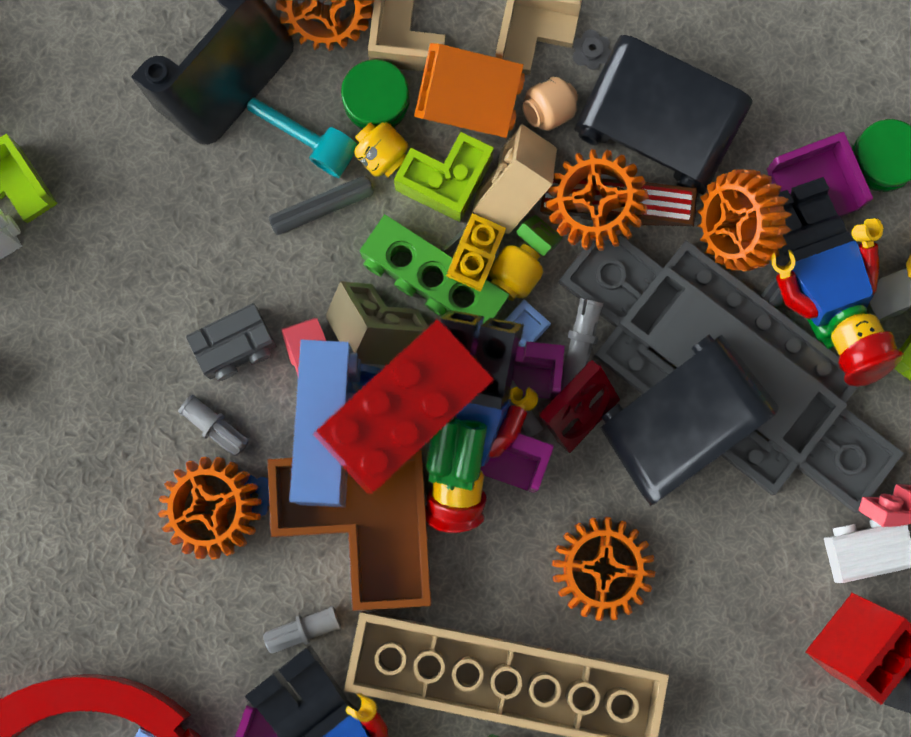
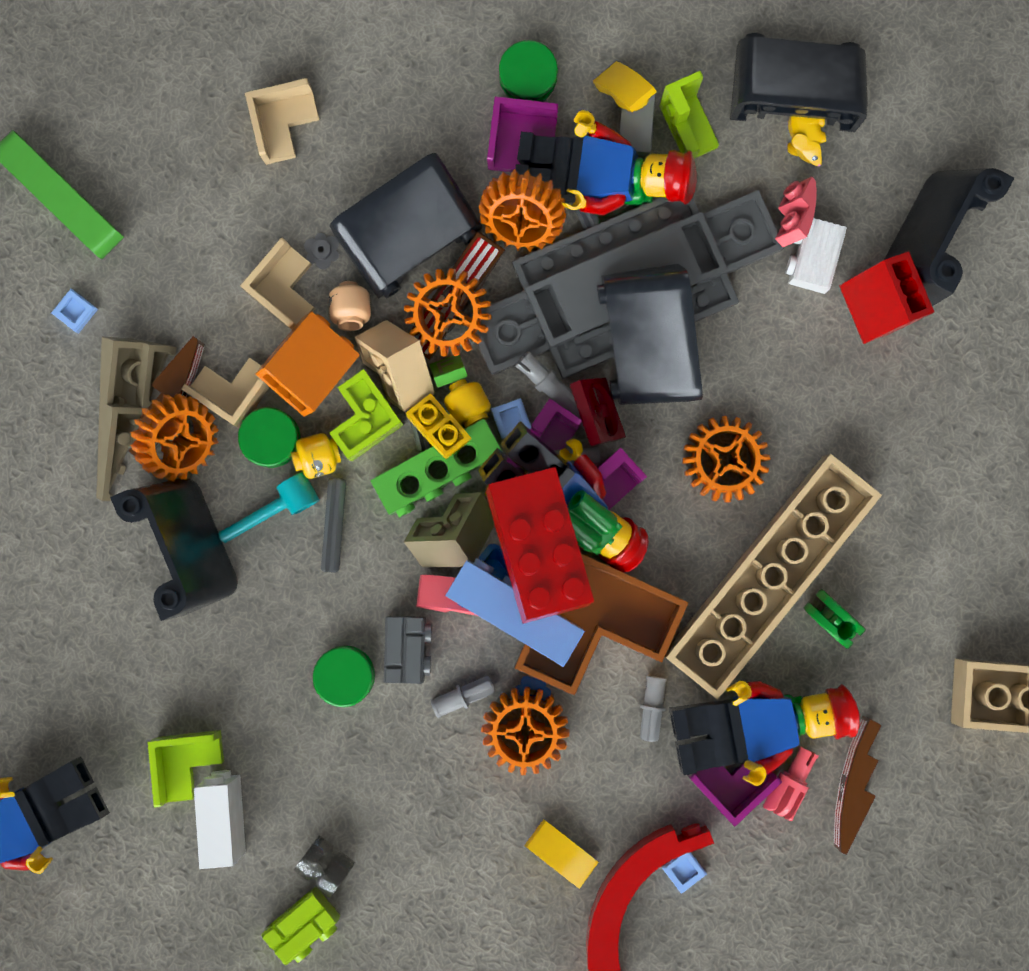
camera: 60 degrees left, 5 degrees up
(101, 613) = (561, 854): none -> yellow slope
(172, 294) = (343, 676): none -> green head

